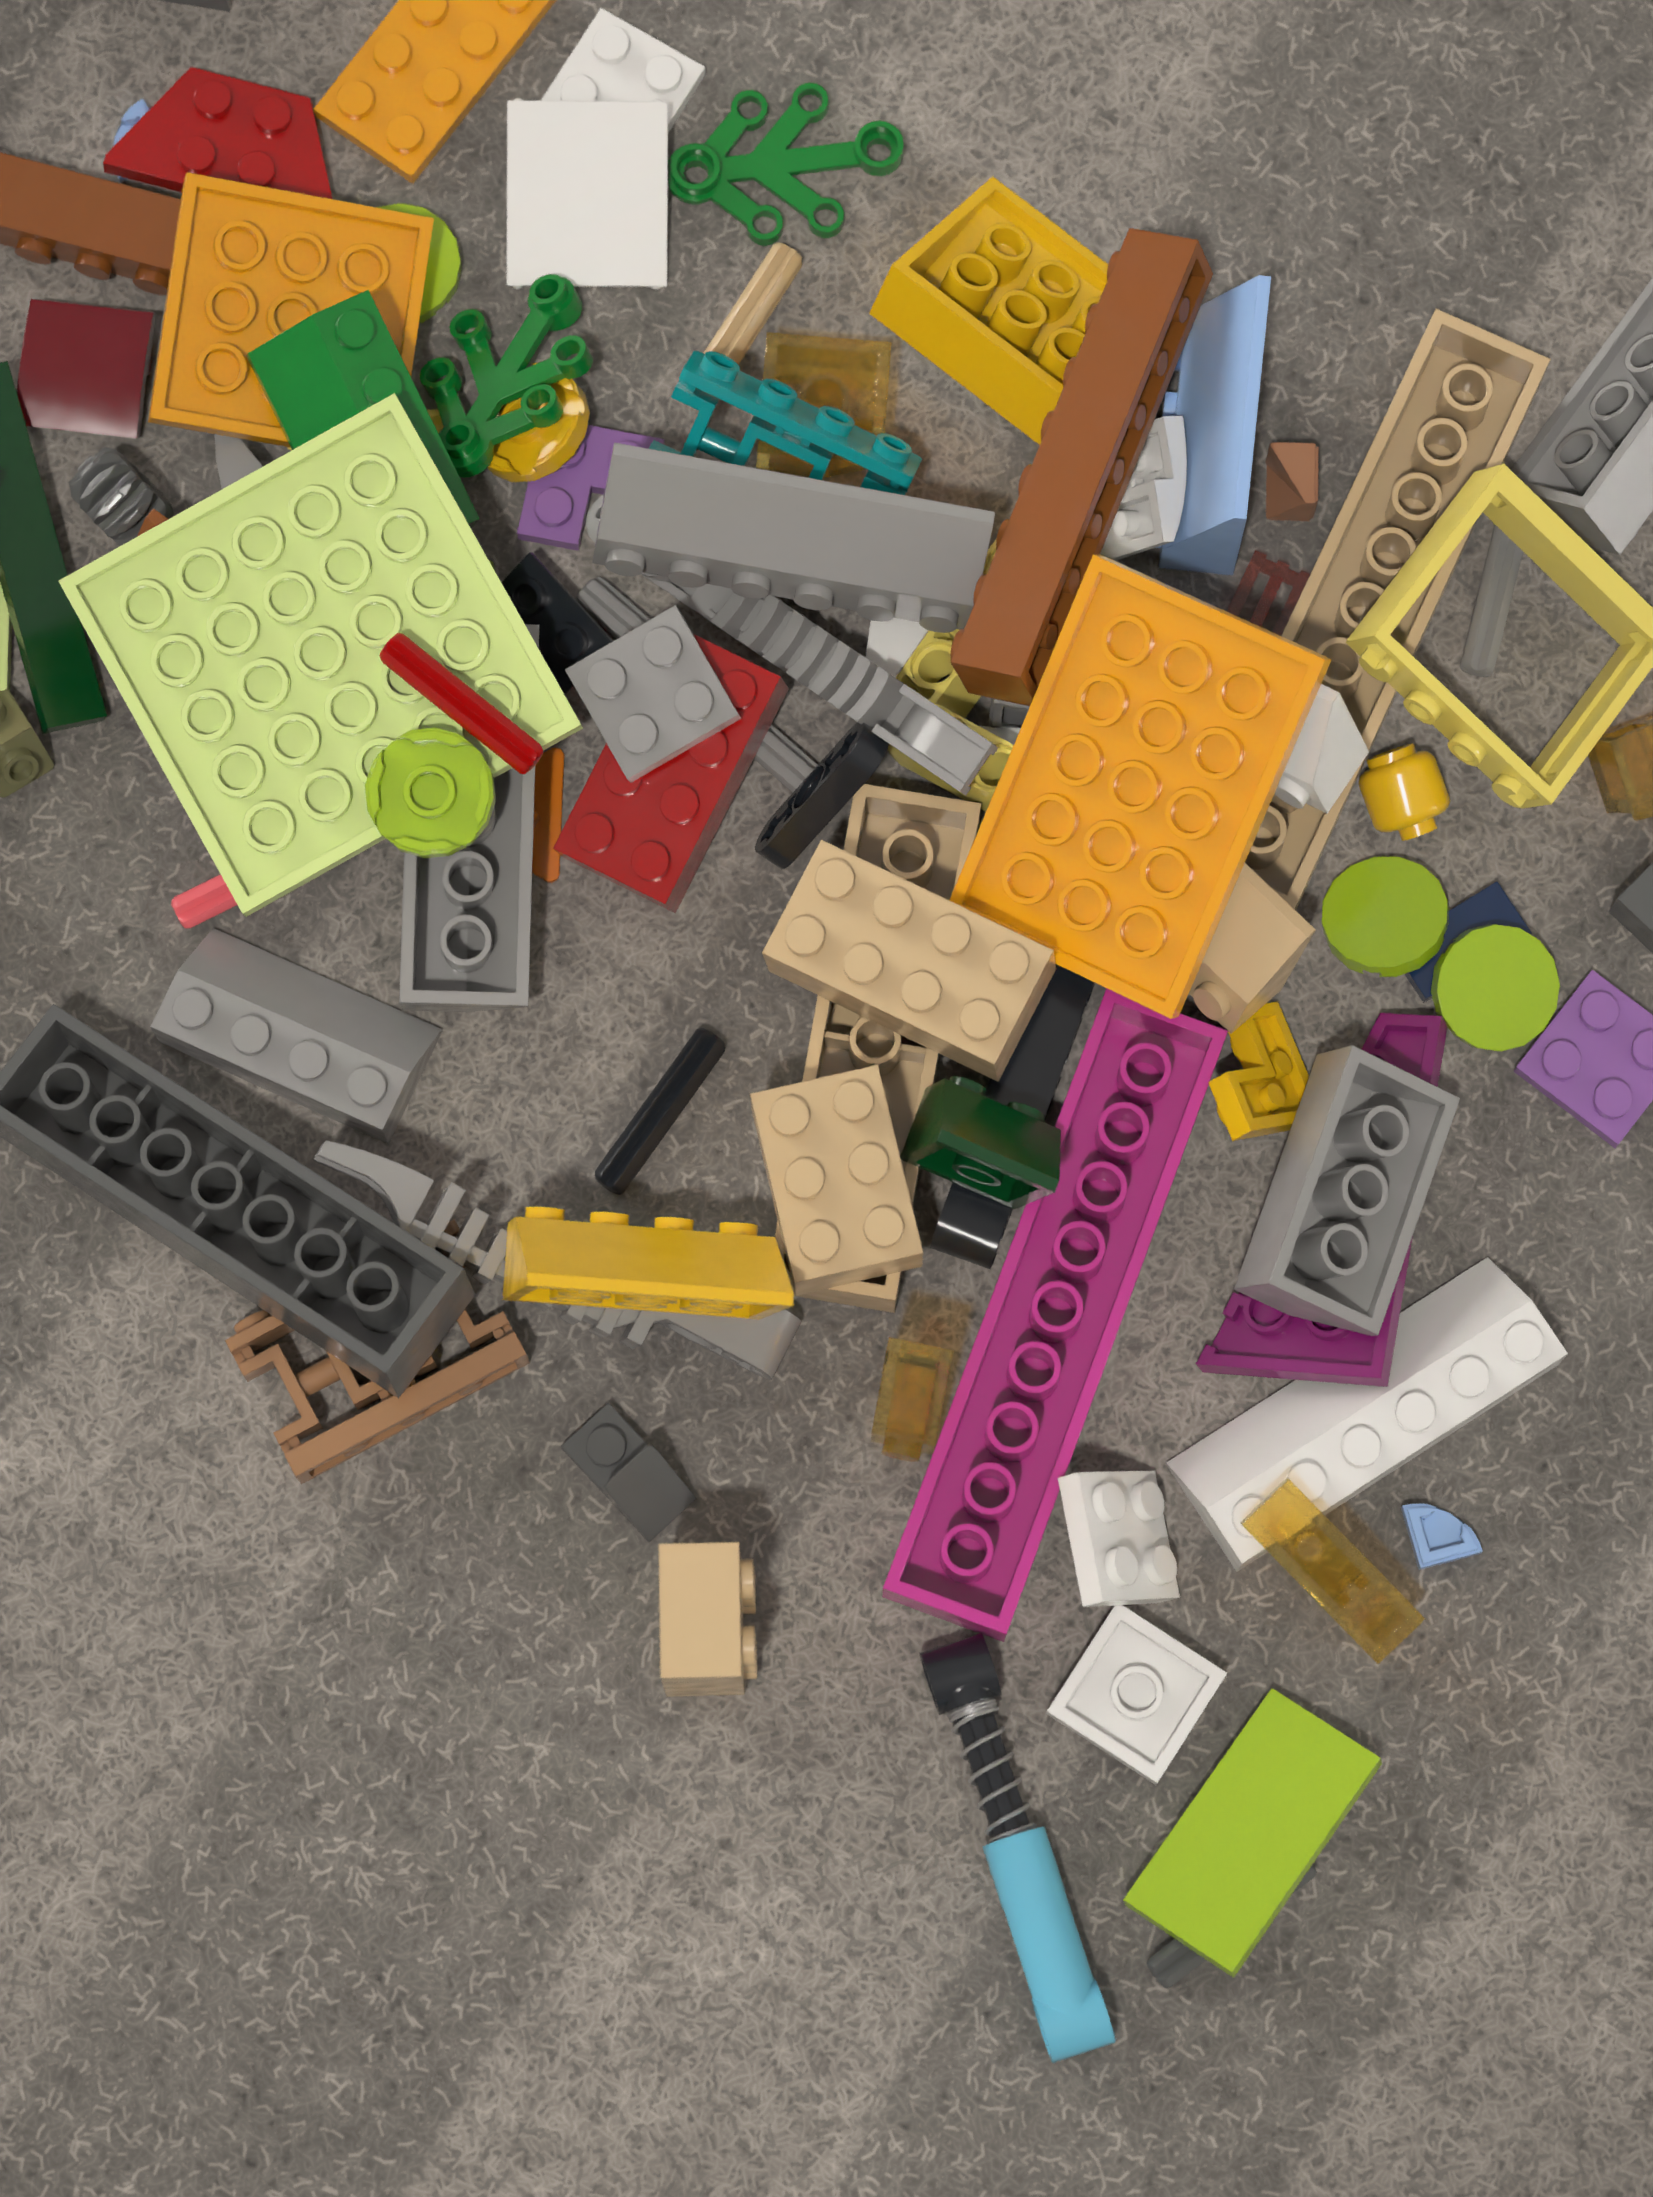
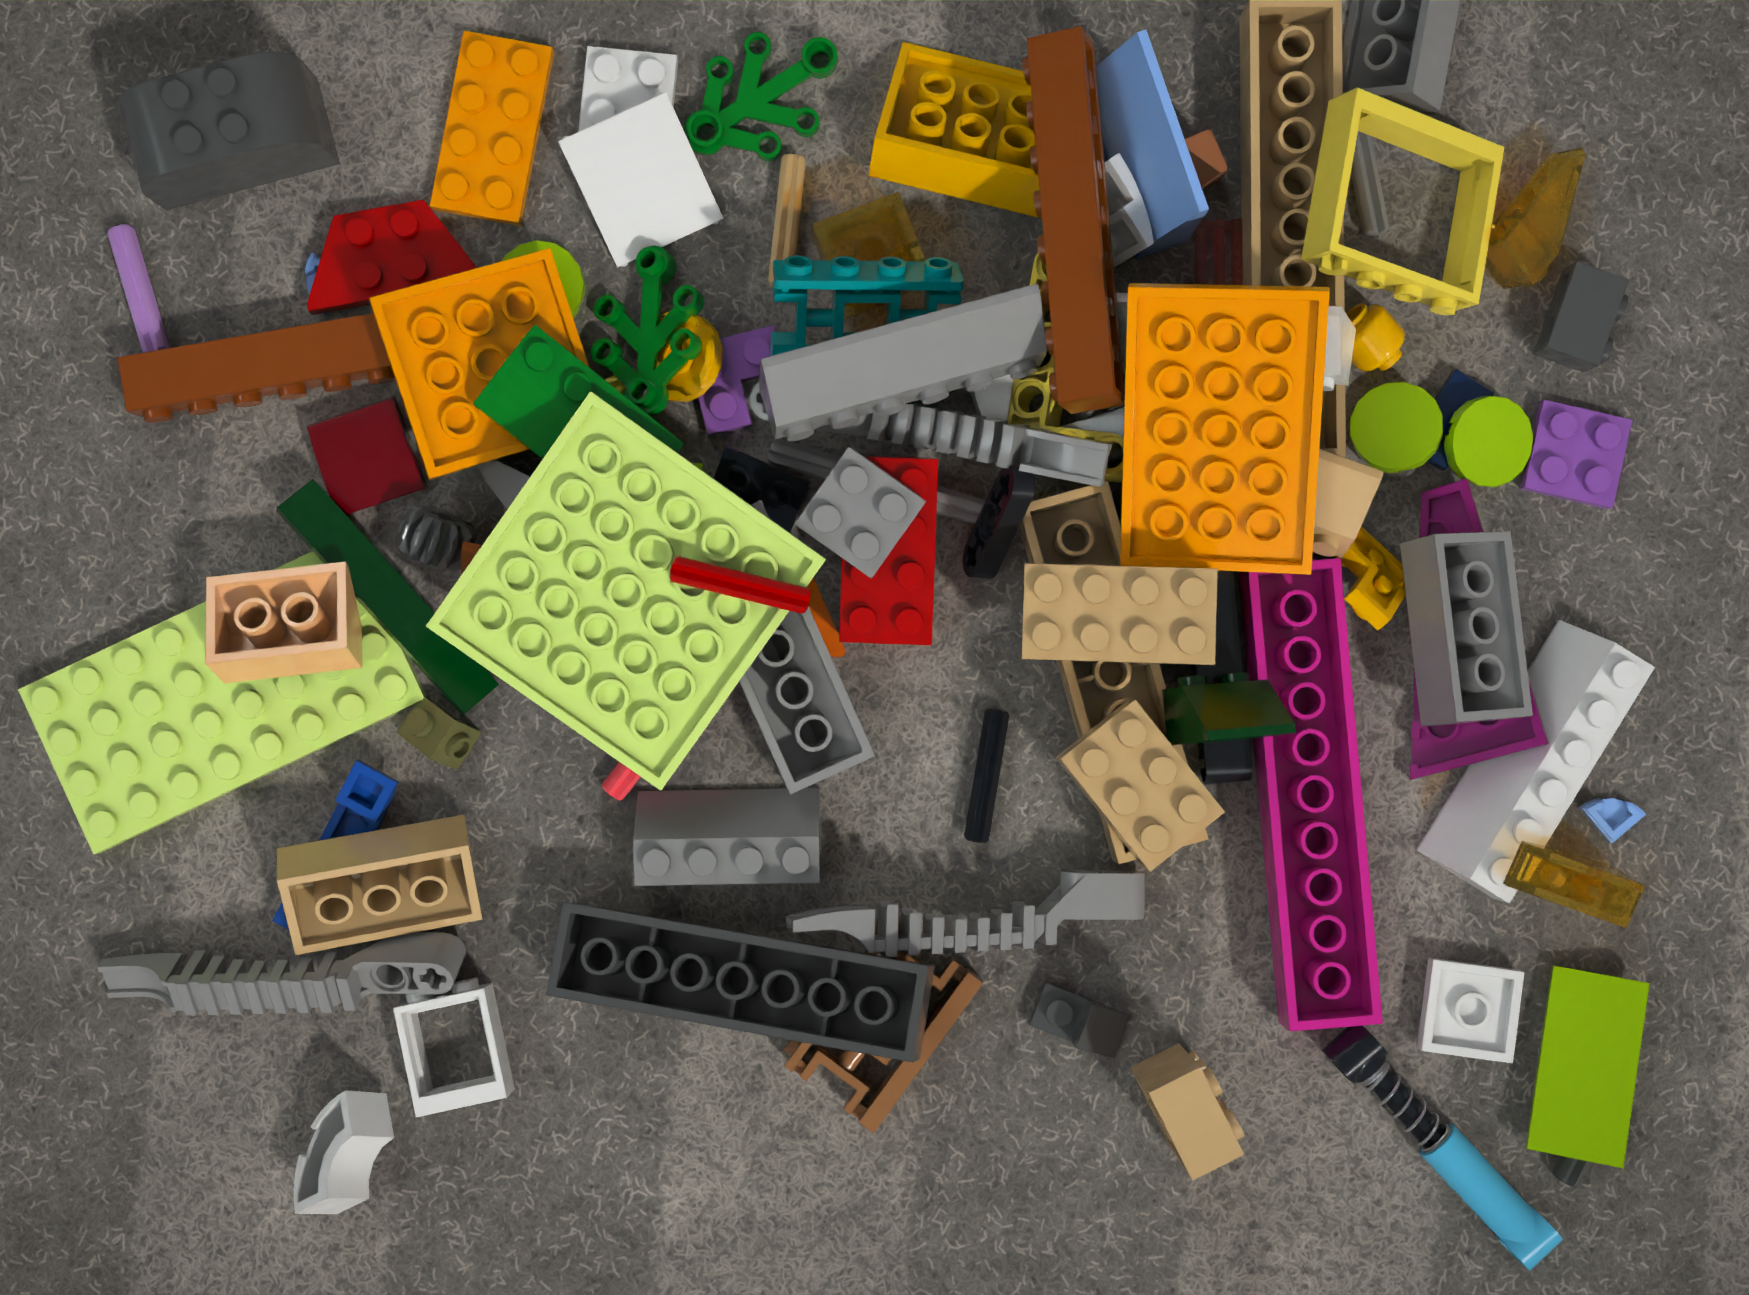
camera: 25 degrees left, 10 degrees up
(430, 793) = (748, 654): lime tile -> none
(644, 1267) = (1047, 908): yellow slope -> none
(911, 1398) = (1247, 895): clear yellow slope -> none
(1119, 1538) = (1419, 921): white plate -> none

